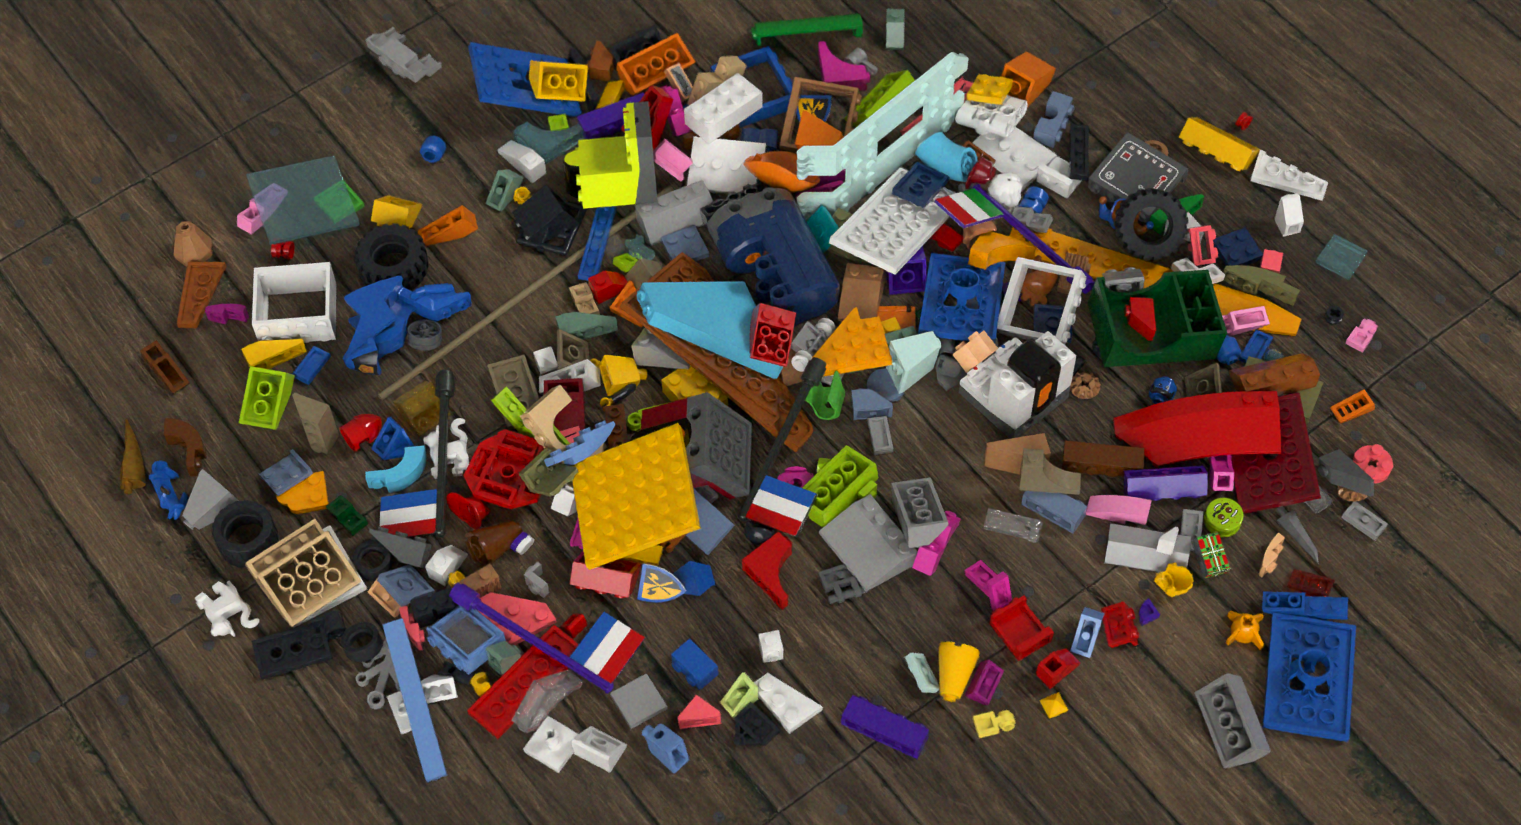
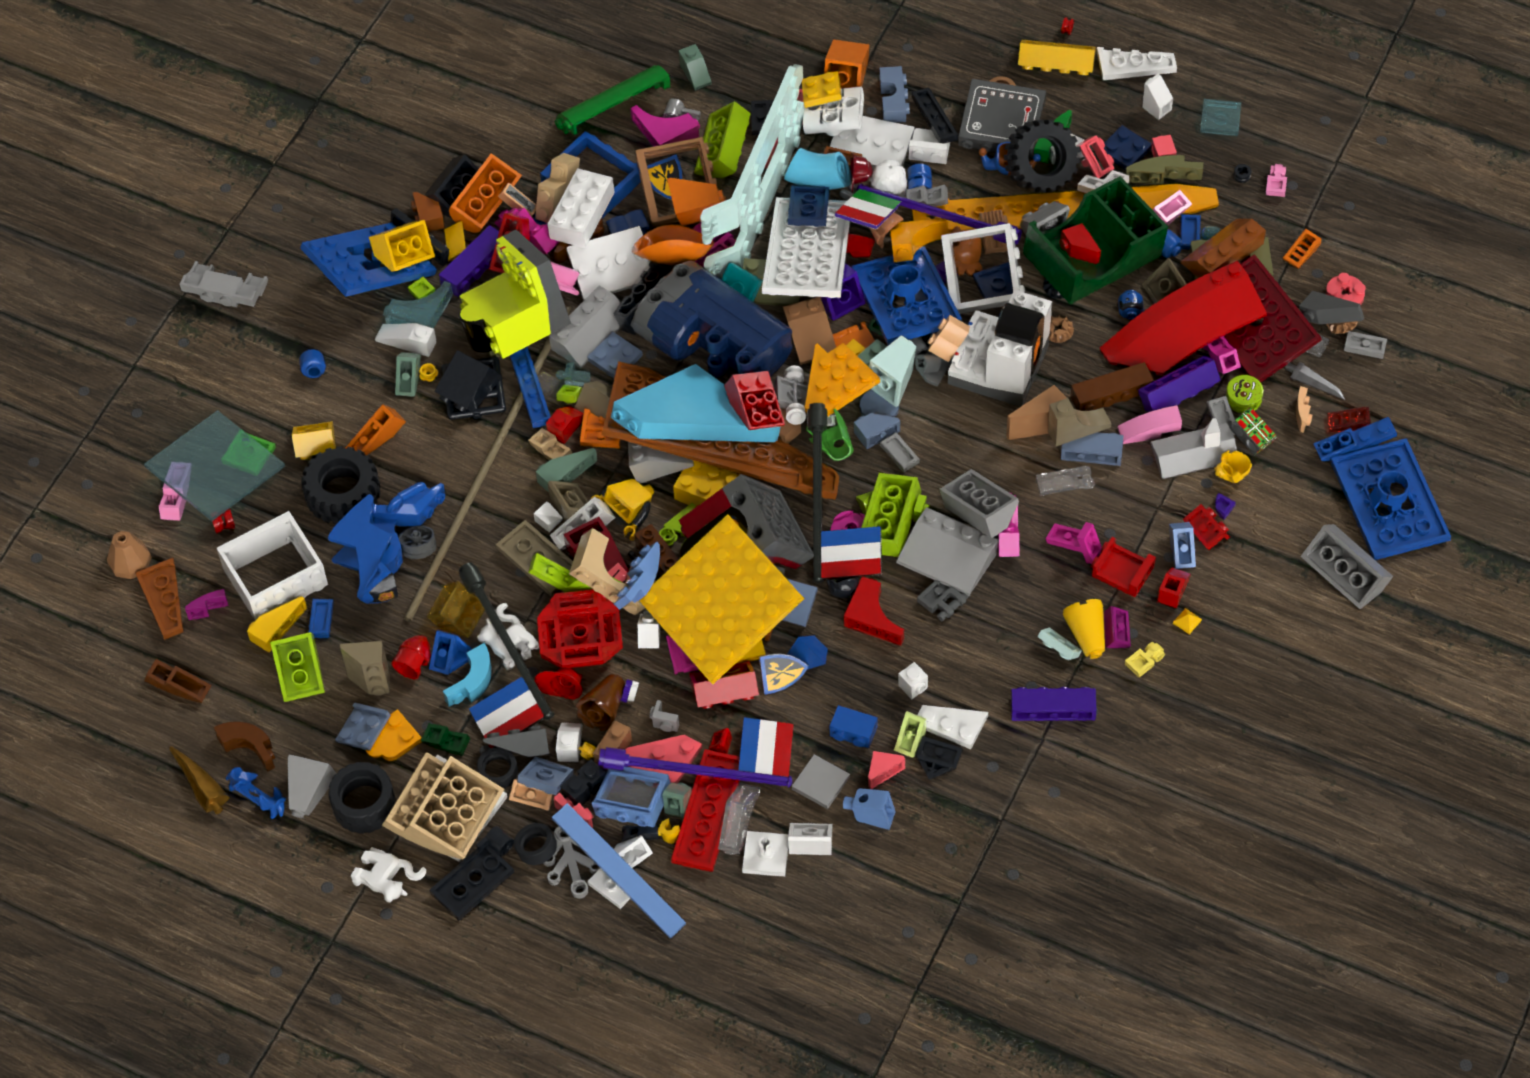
camera: 25 degrees left, 0 degrees up
(546, 479) = (626, 621): olive bracket -> none
(1245, 628) = (1314, 482): light orange piece -> none

